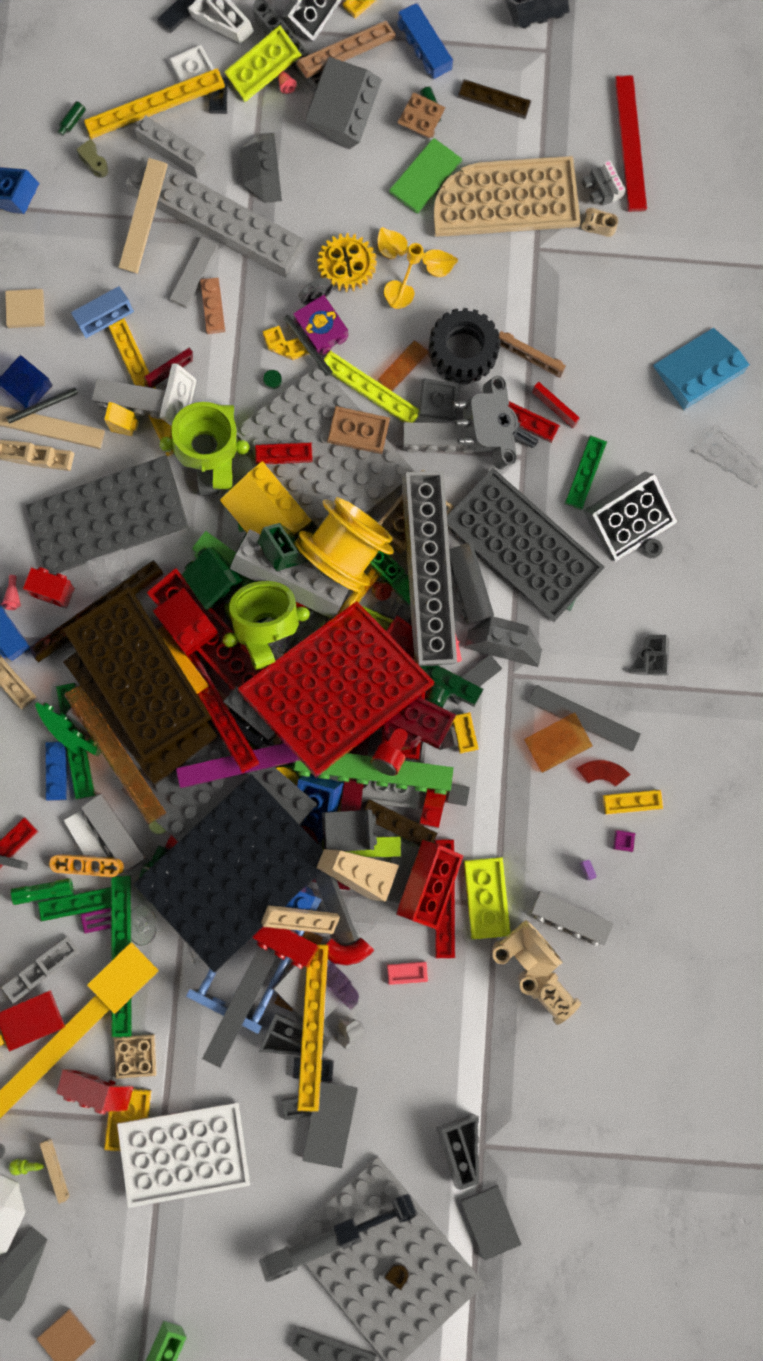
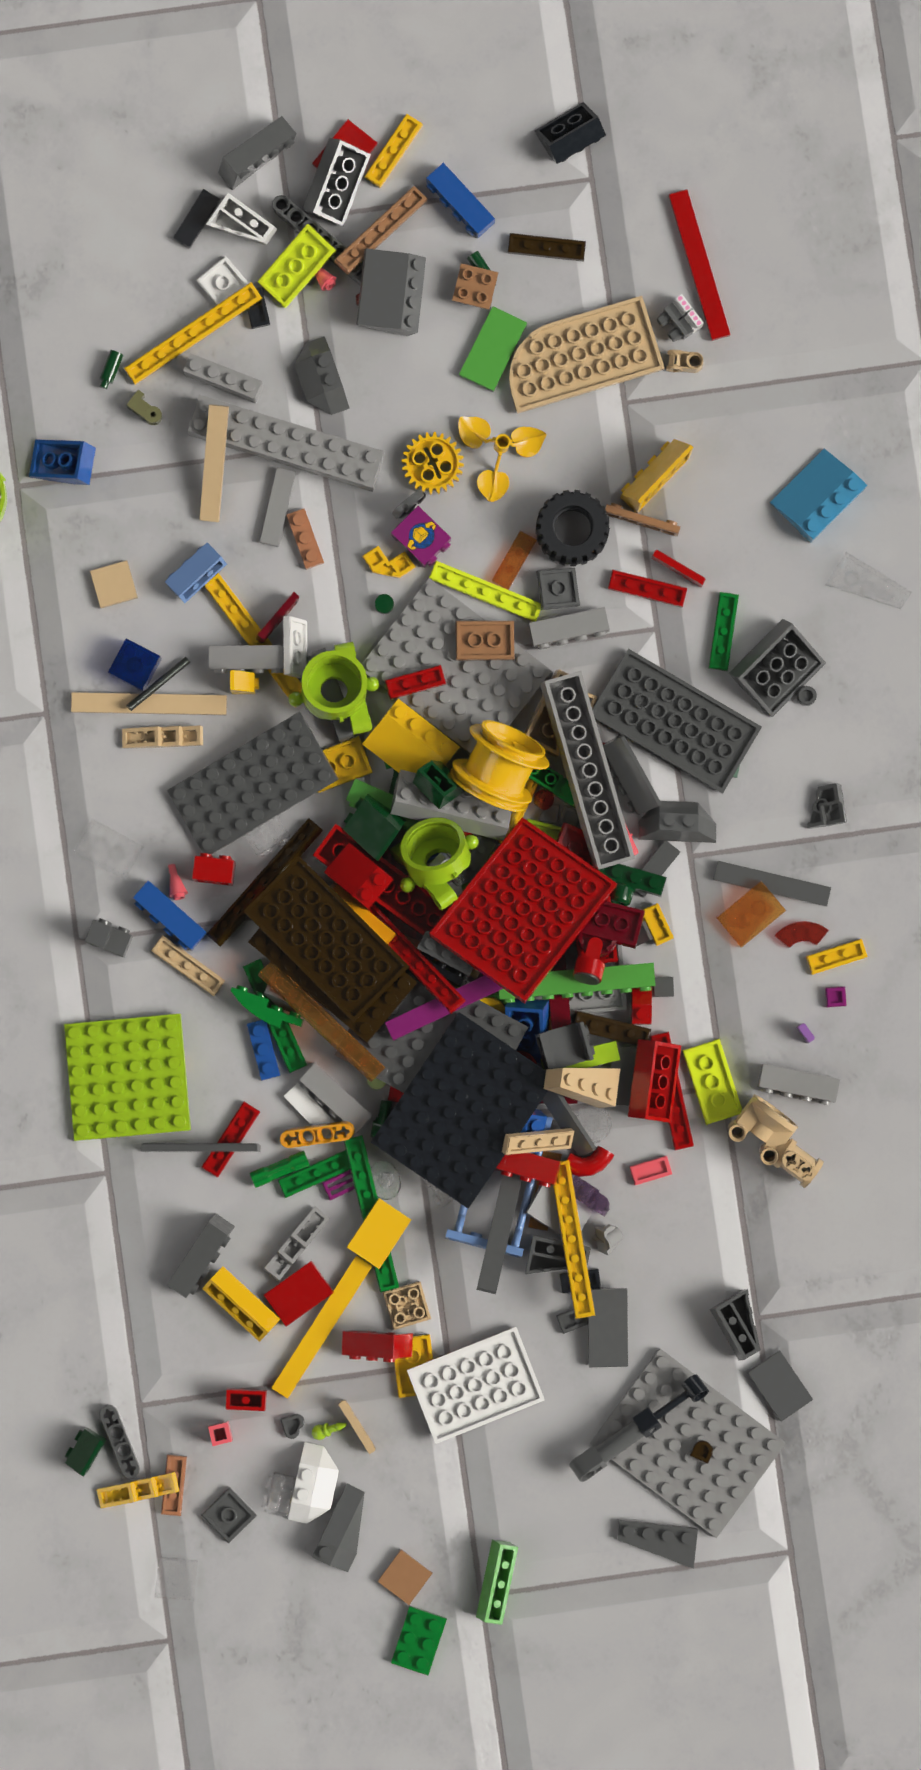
camera: 10 degrees left, 5 degrees up
(202, 515) = (347, 761): none -> yellow tile
(306, 343) = (411, 560): pearl dark grey bar -> none
(492, 424) = (618, 605): piece -> none
(554, 314) = (656, 475): none -> yellow slope

